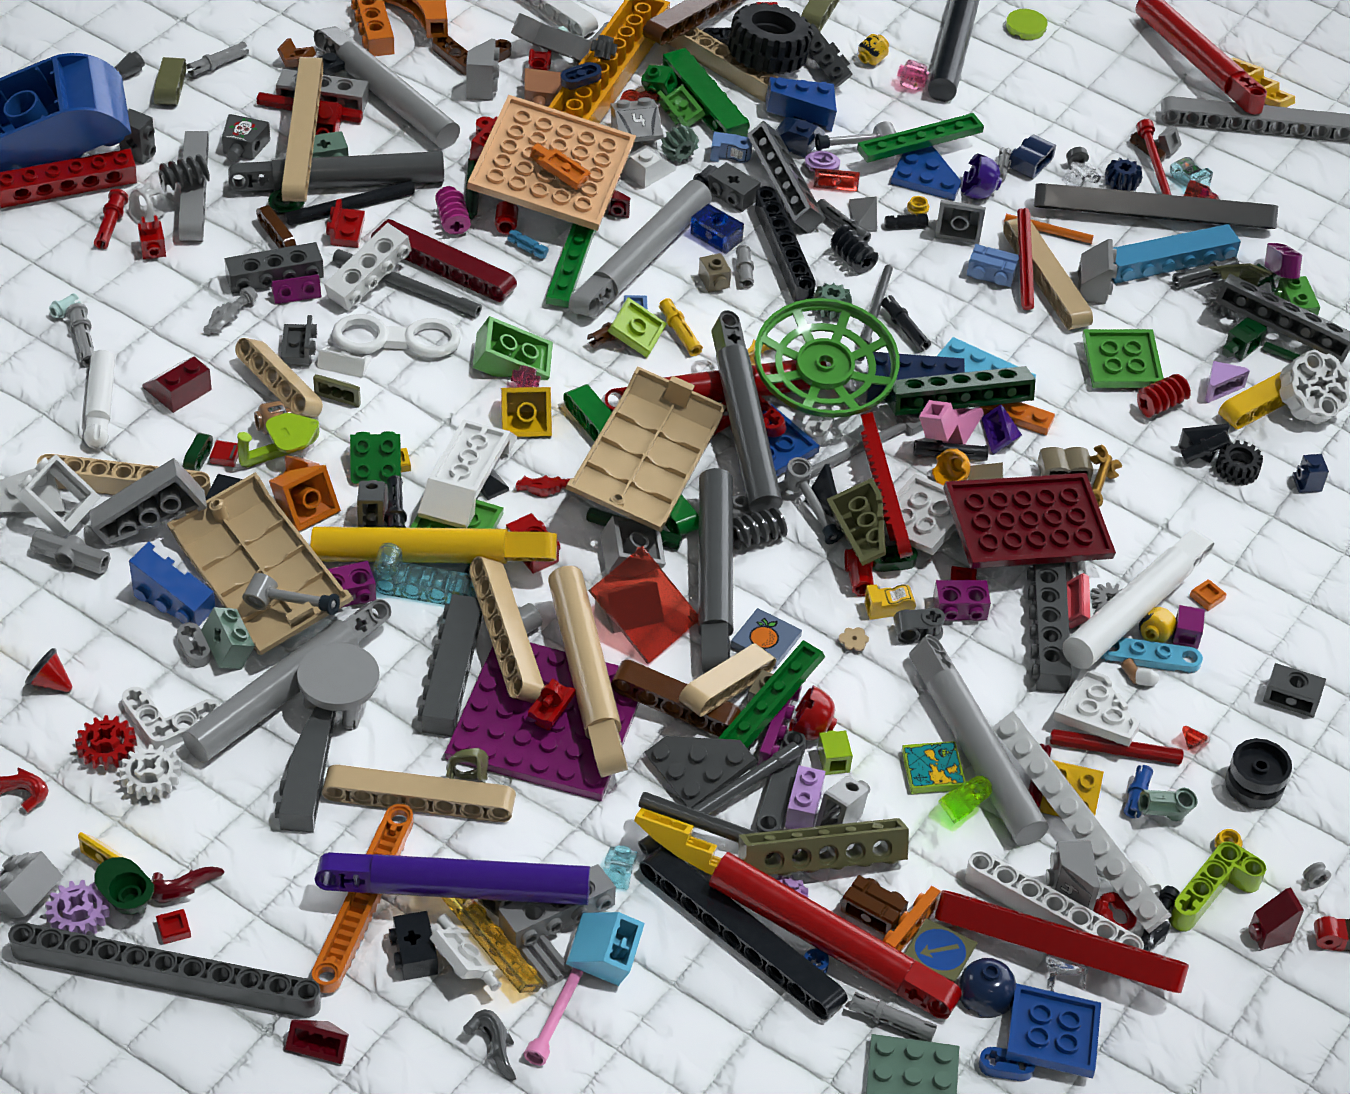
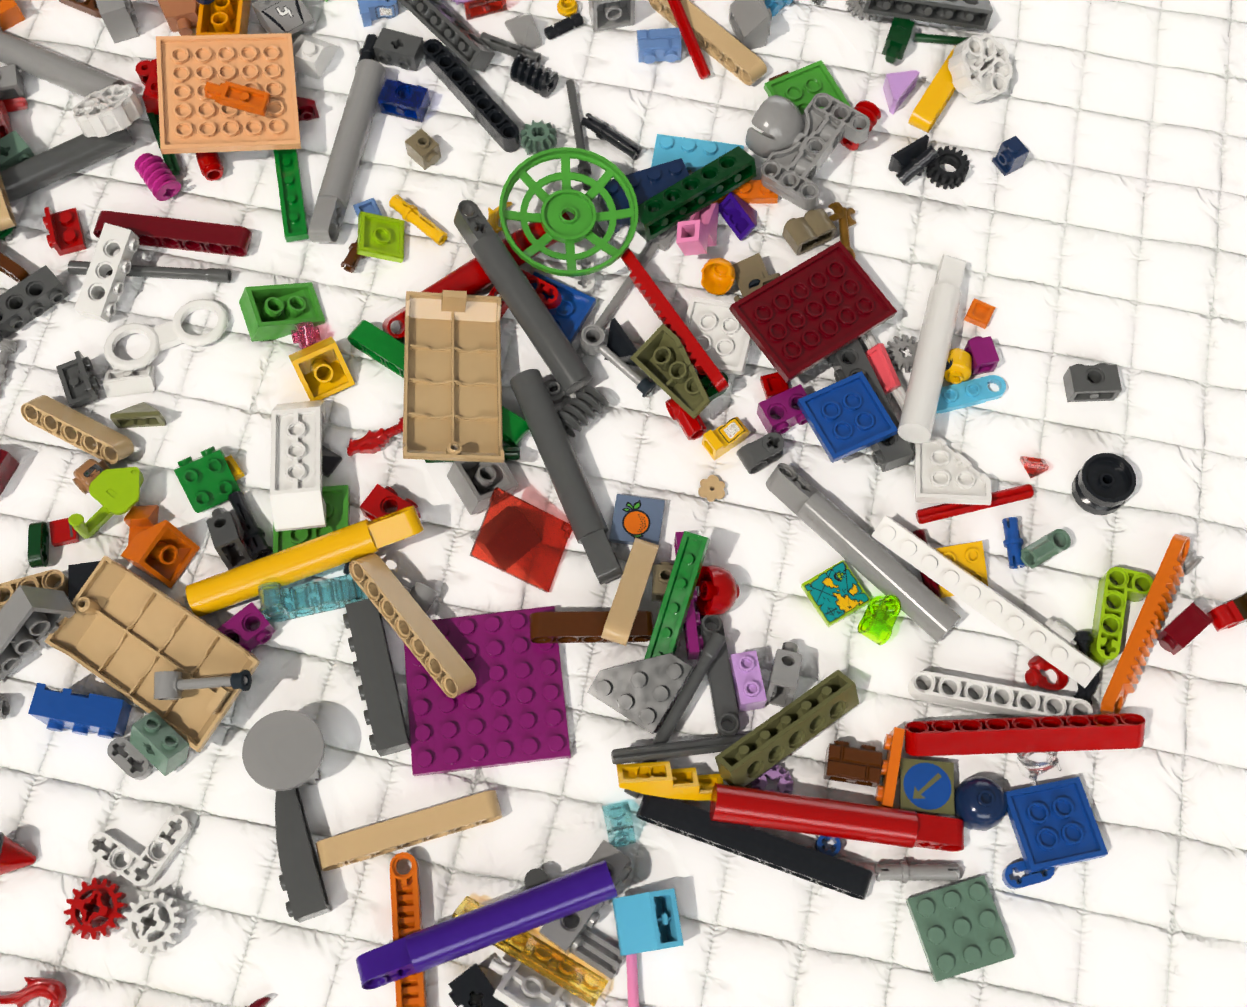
camera: 20 degrees left, 20 degrees up
(274, 686) = (228, 771): light grey piece -> none
(296, 289) = (50, 321): magenta hinge -> none
(350, 202) = (57, 203): black axle -> none
(434, 140) = (108, 110): none -> white connector
(475, 756) = (442, 780): olive piece -> none
(527, 244) = (242, 184): dark azure axle -> none
(551, 704) = (488, 687): red hips -> none
(588, 668) = (504, 636): tan piece -> none
(679, 143) = (332, 22): sand green gear -> none
(744, 266) = (446, 131): light grey pin -> none
(835, 752) = (749, 618): lime brick -> none
(934, 449) = (716, 251): black pin -> none
(1017, 618) = (847, 417): none -> blue plate
(1074, 872) = (1007, 662): light grey slope -> none
(1090, 385) = (791, 138): none -> light grey beam
(1139, 676) = (962, 422): arm -> none
(1228, 835) = (1107, 555): yellow plate -> none
(1242, 900) = (1146, 626): none -> orange gear

